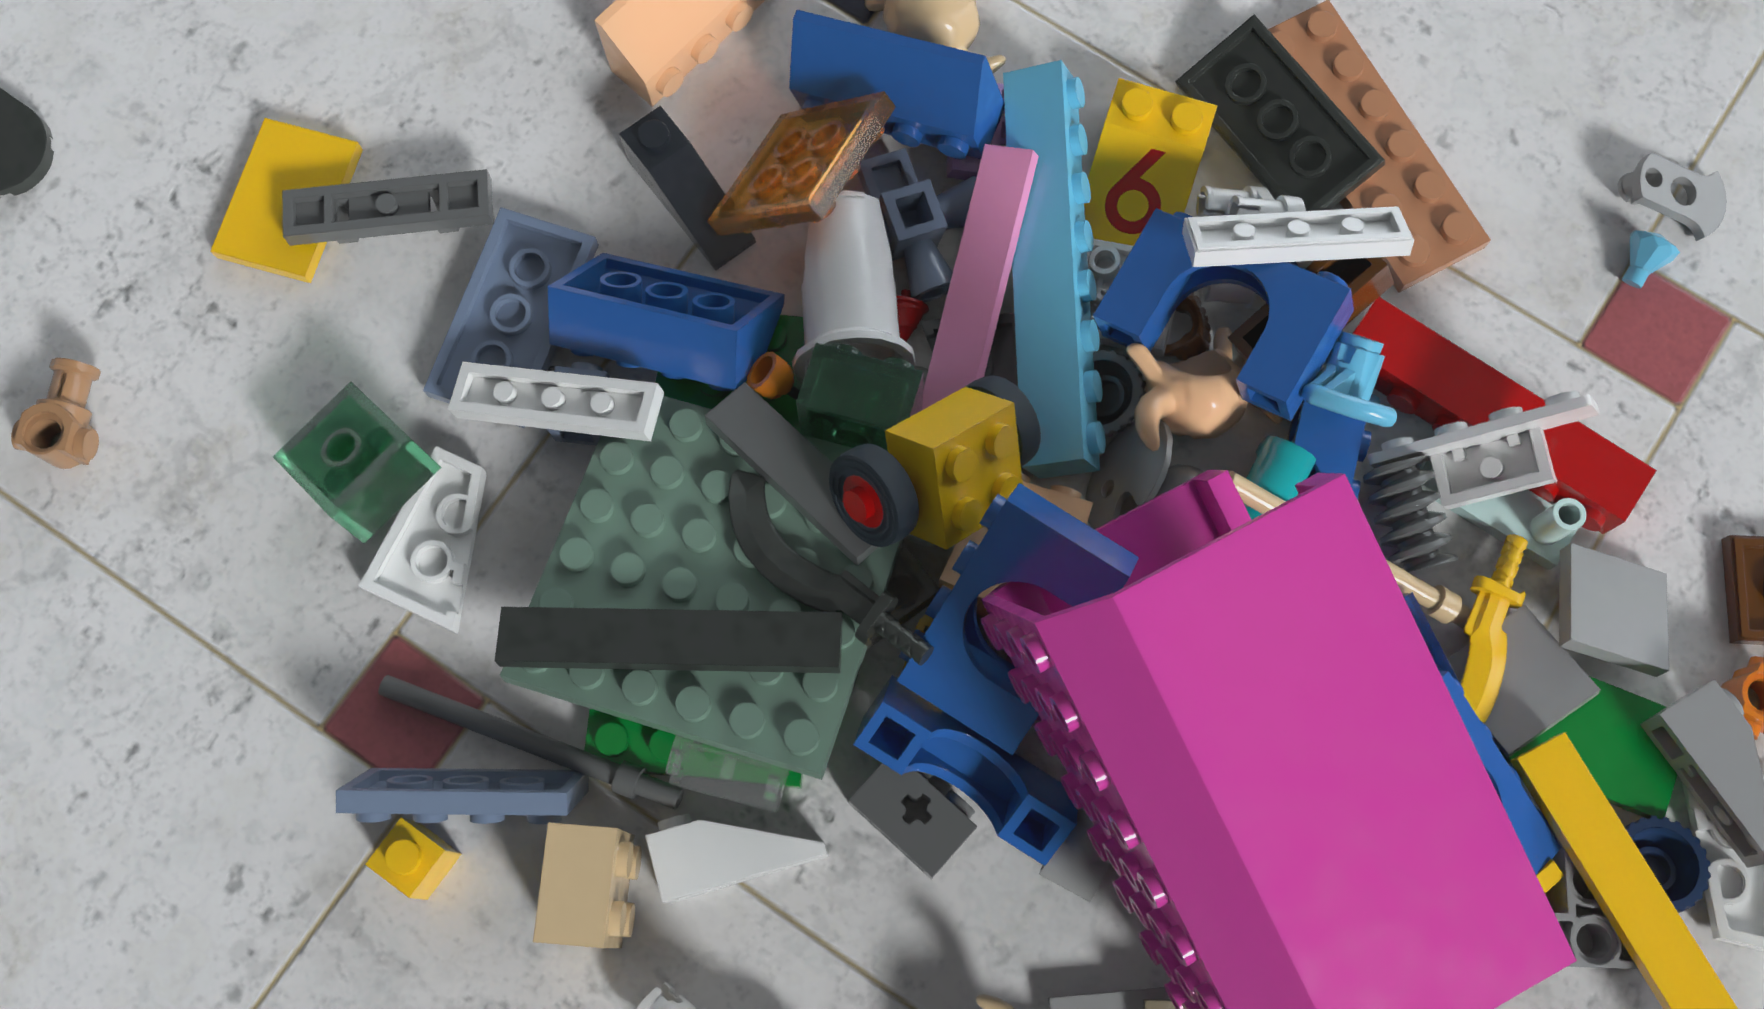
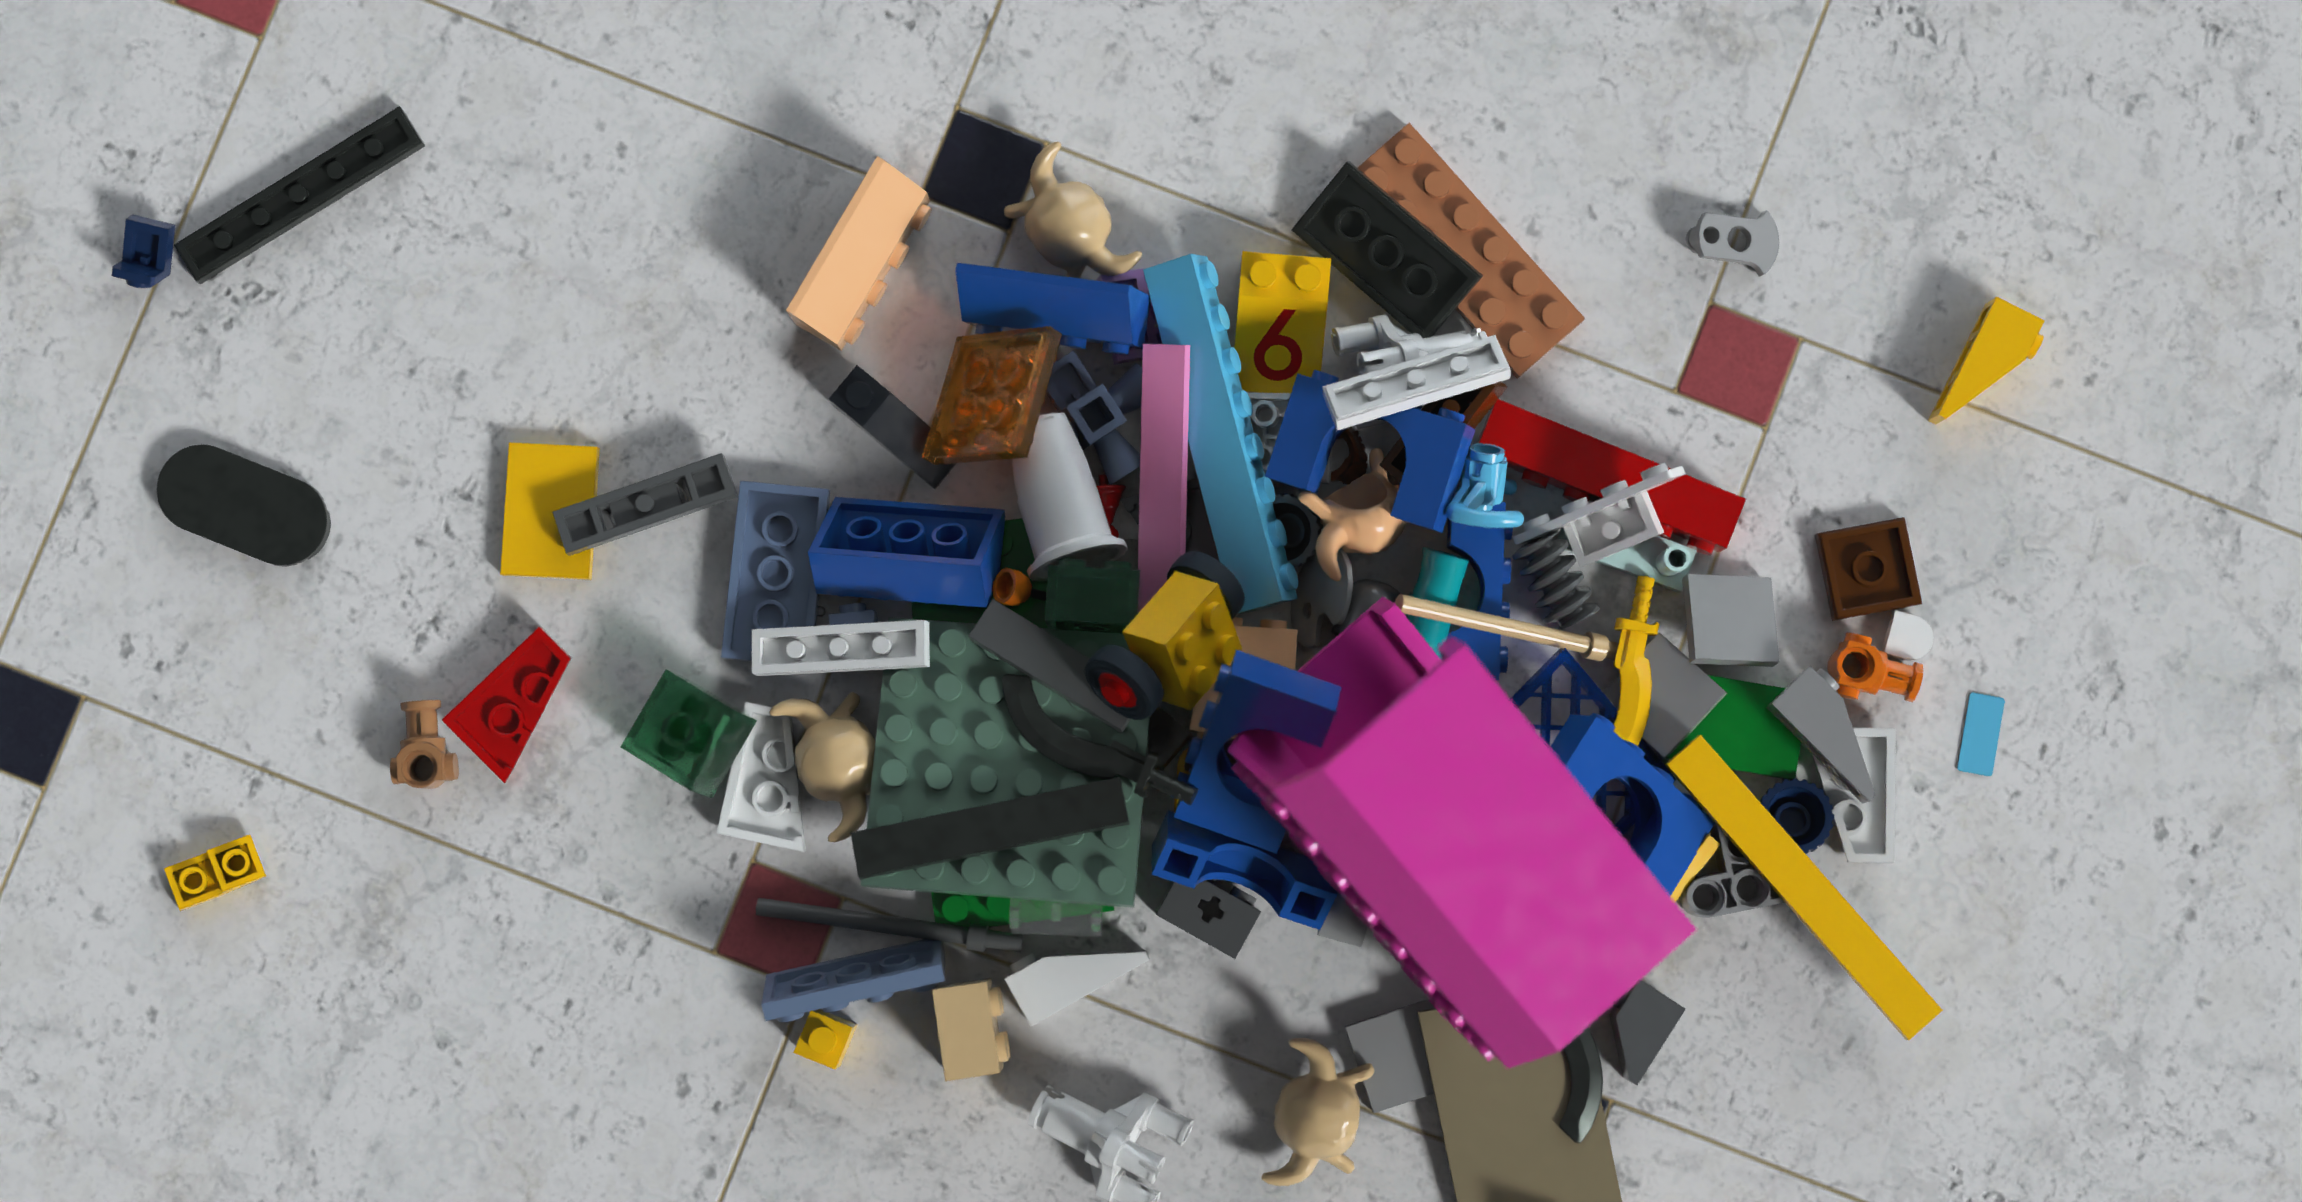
camera: 15 degrees left, 10 degrees up
(174, 390) = (508, 703): none -> red wing
(514, 525) = (834, 757): none -> tan piece
(1647, 254) = (1718, 302): medium azure rock -> none

